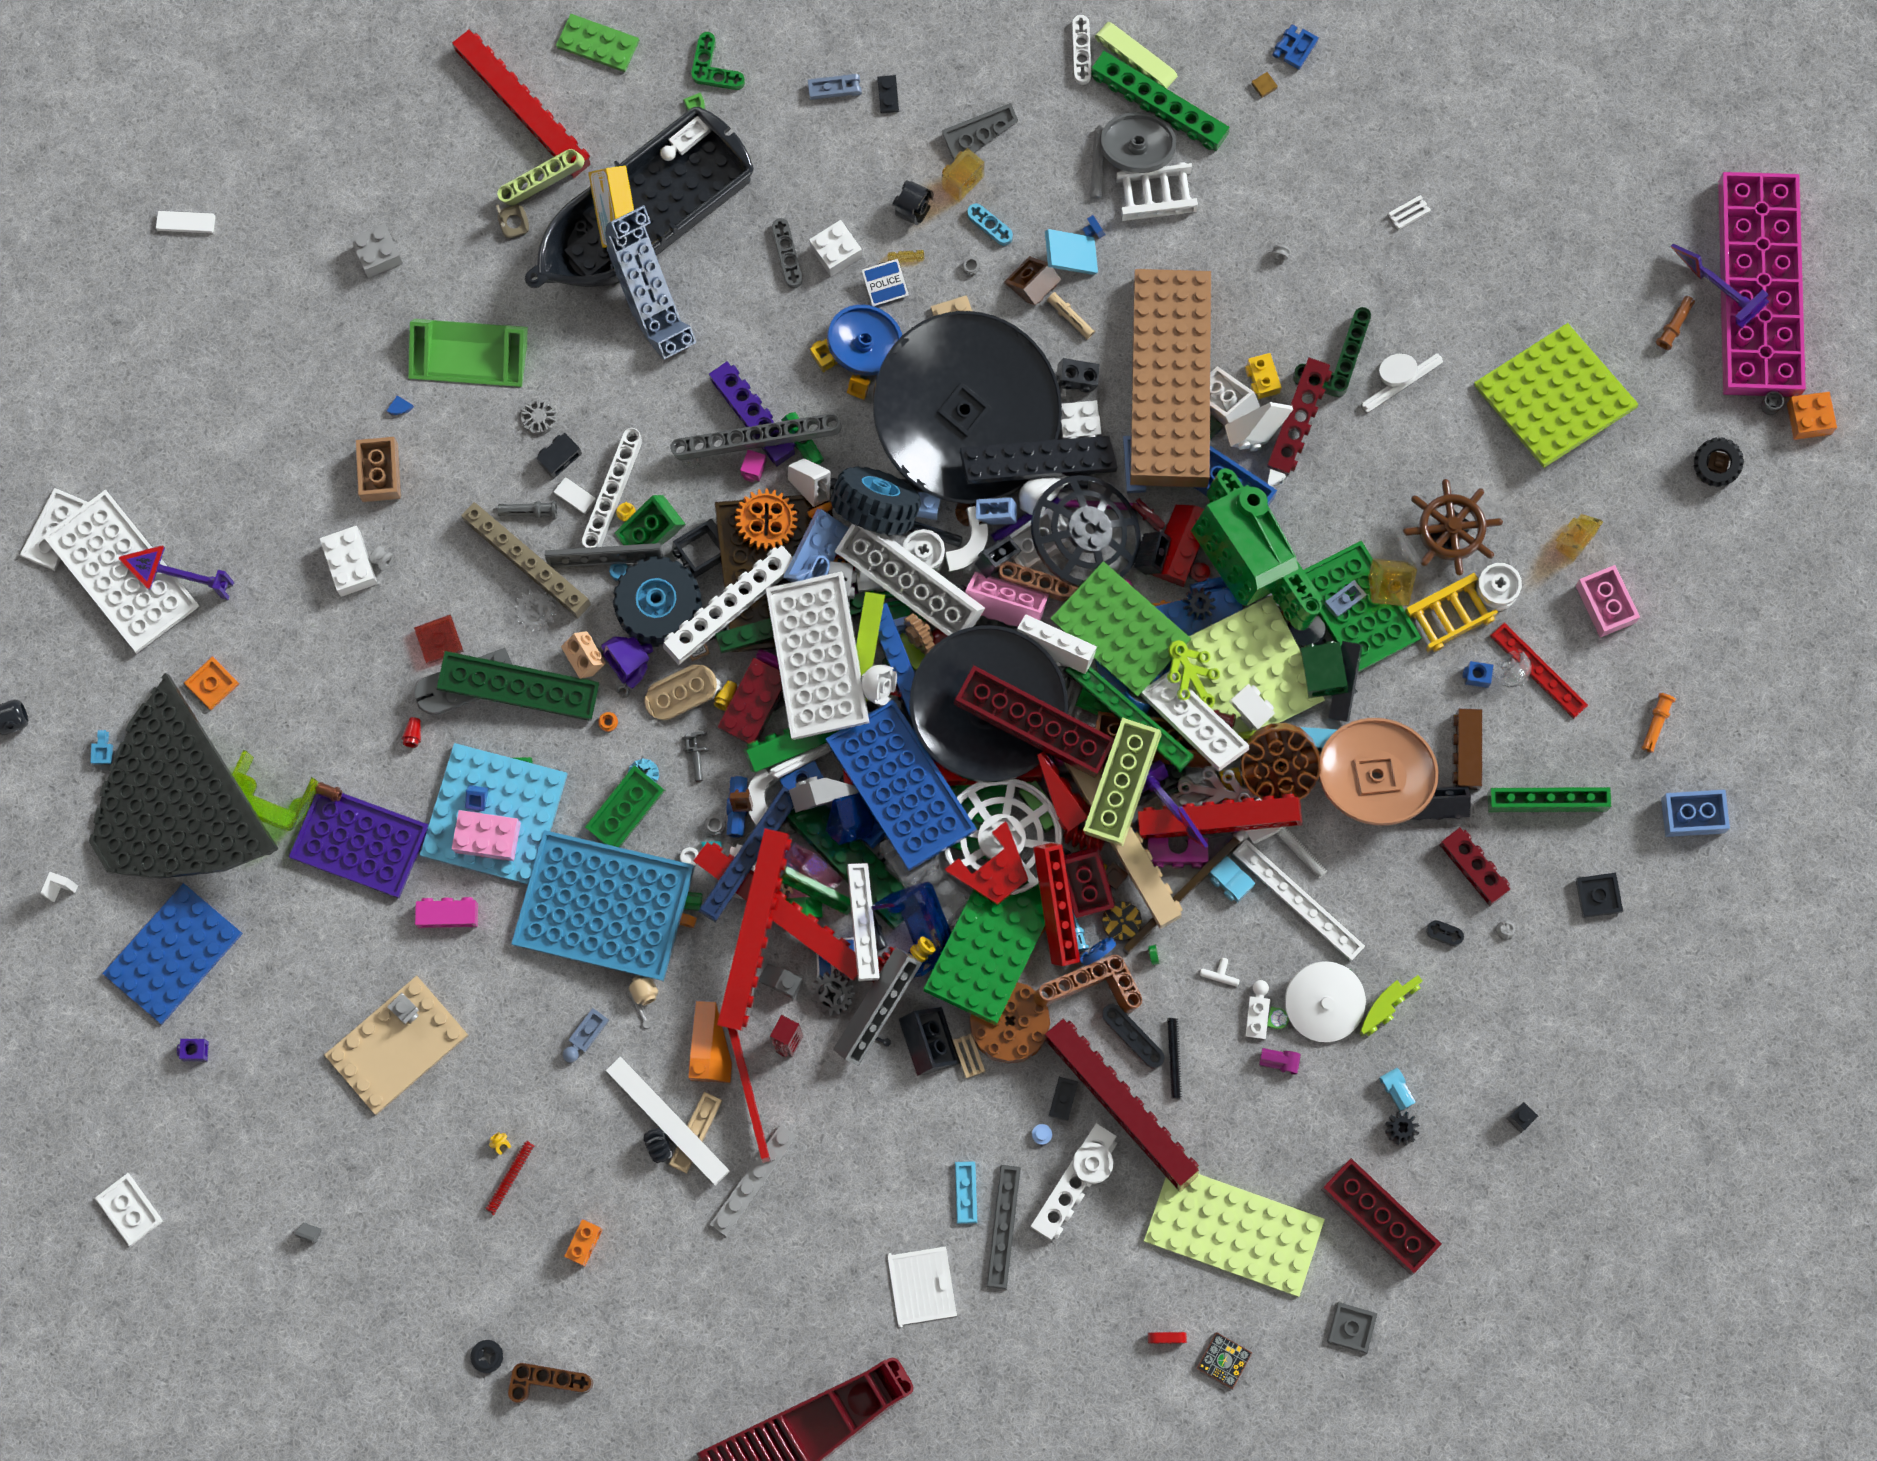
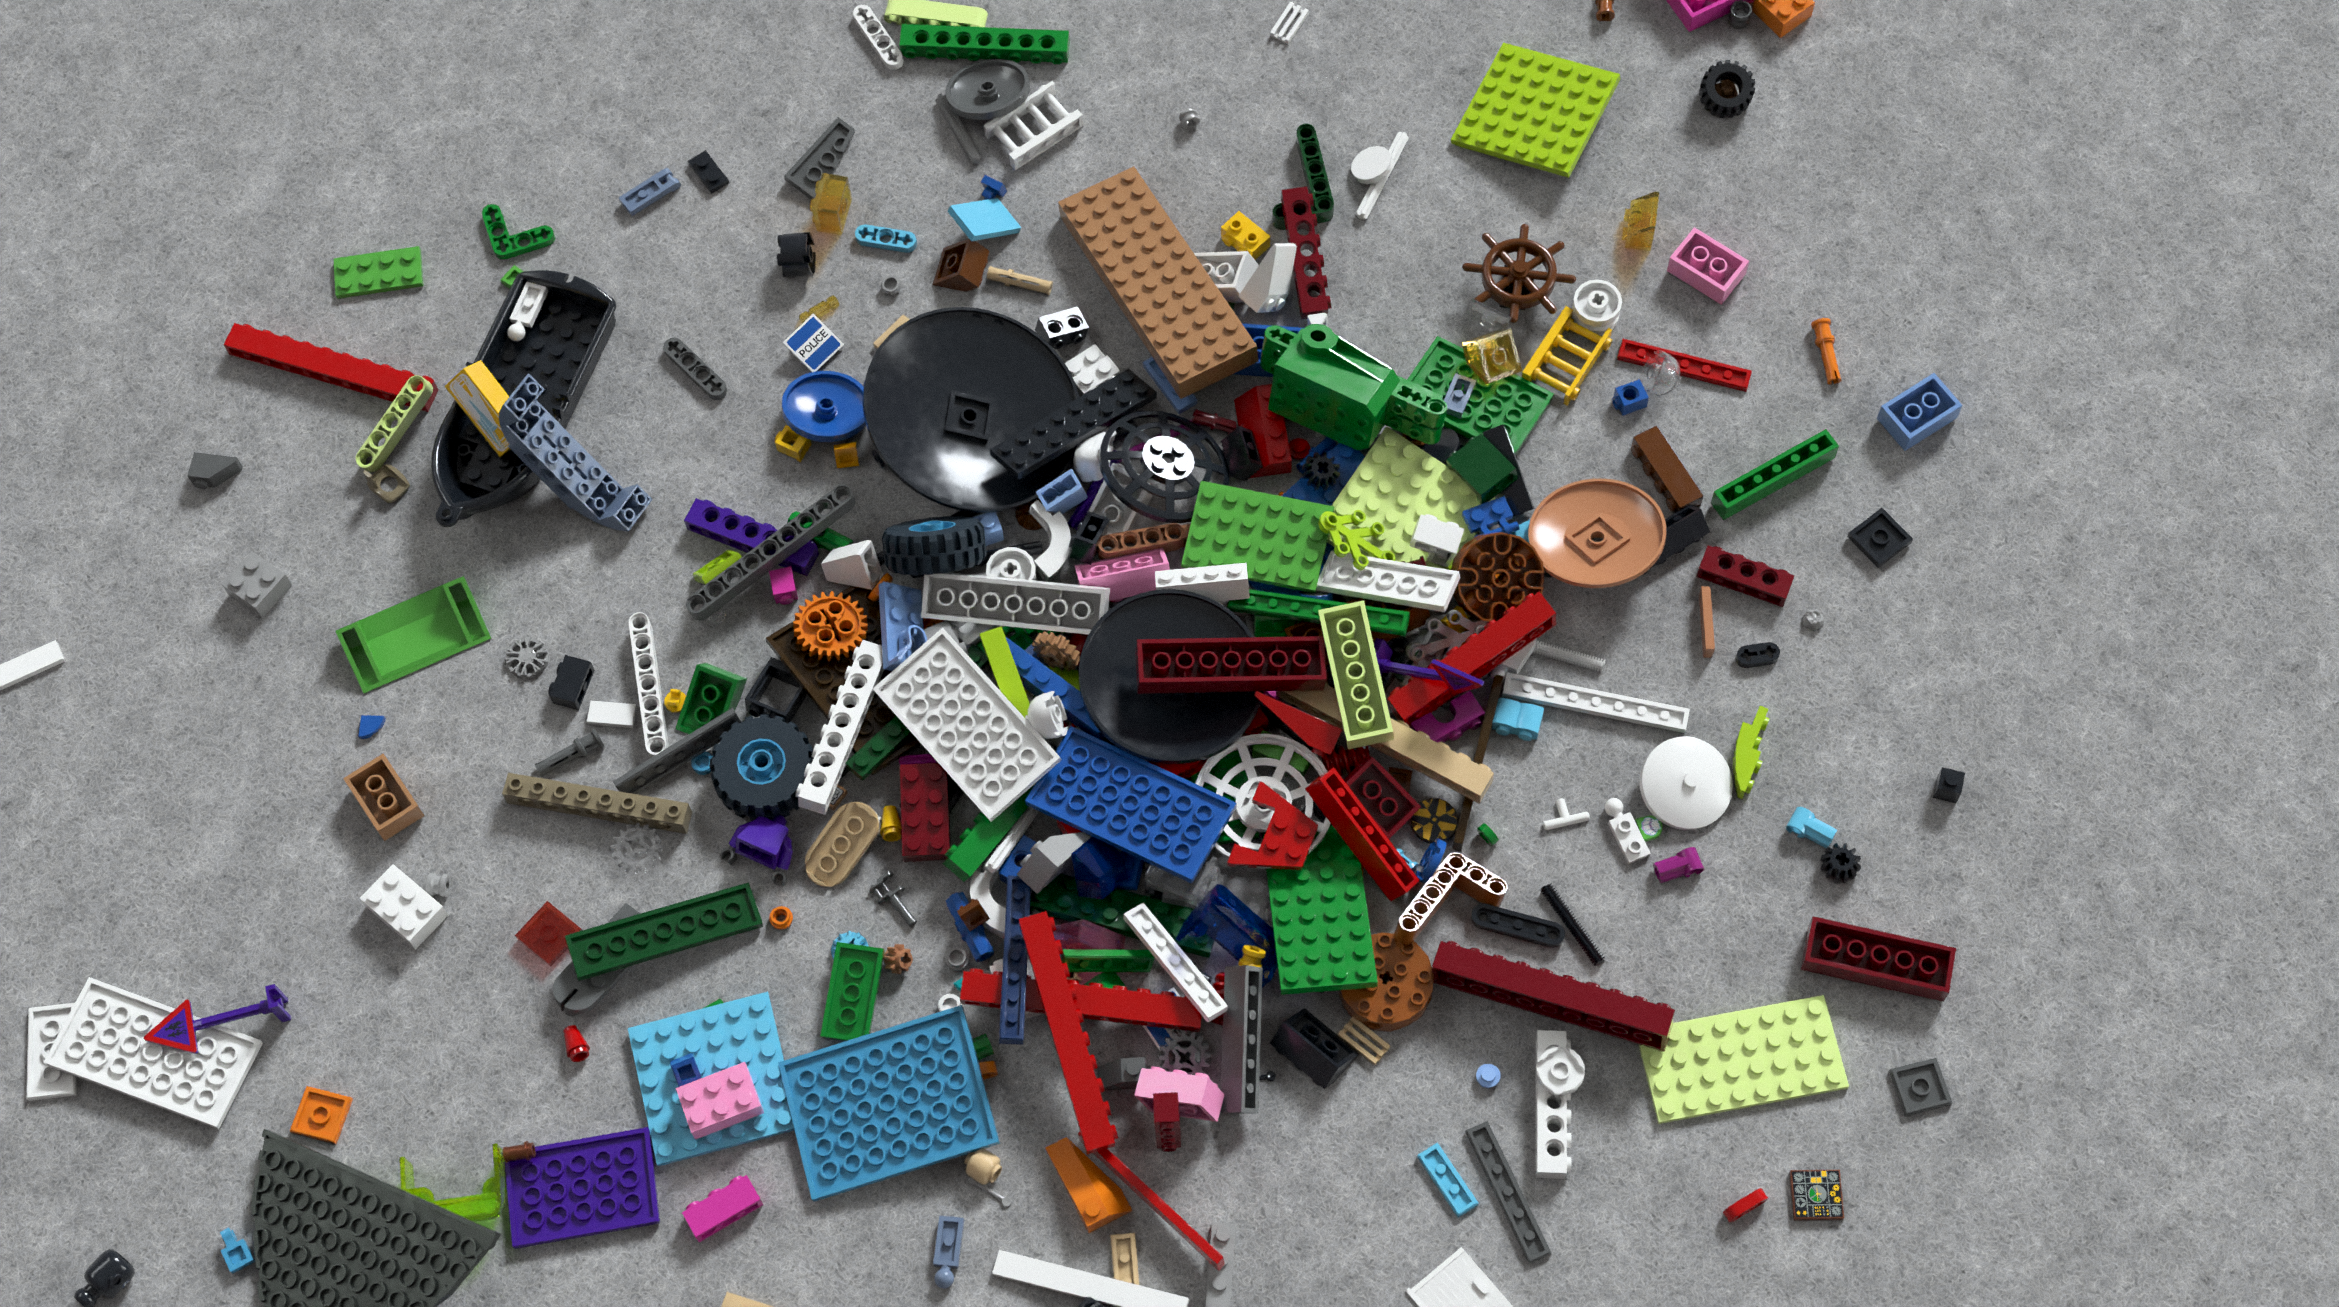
camera: 30 degrees left, 10 degrees down
(392, 139) = (212, 470): none -> dark grey slope
(583, 655) = (713, 867): light nougat brick -> none
(671, 801) = (897, 958): none -> nougat gear
(712, 424) = (716, 566): none -> lime tile
(813, 1022) = (1196, 1093): none -> bright pink brick
(835, 248) = (743, 337): white brick -> none
(1063, 1098) = (1487, 1027): black plate -> none
(1307, 708) = (1490, 514): none -> blue plate
(1422, 886) = (1706, 621): none -> nougat tile

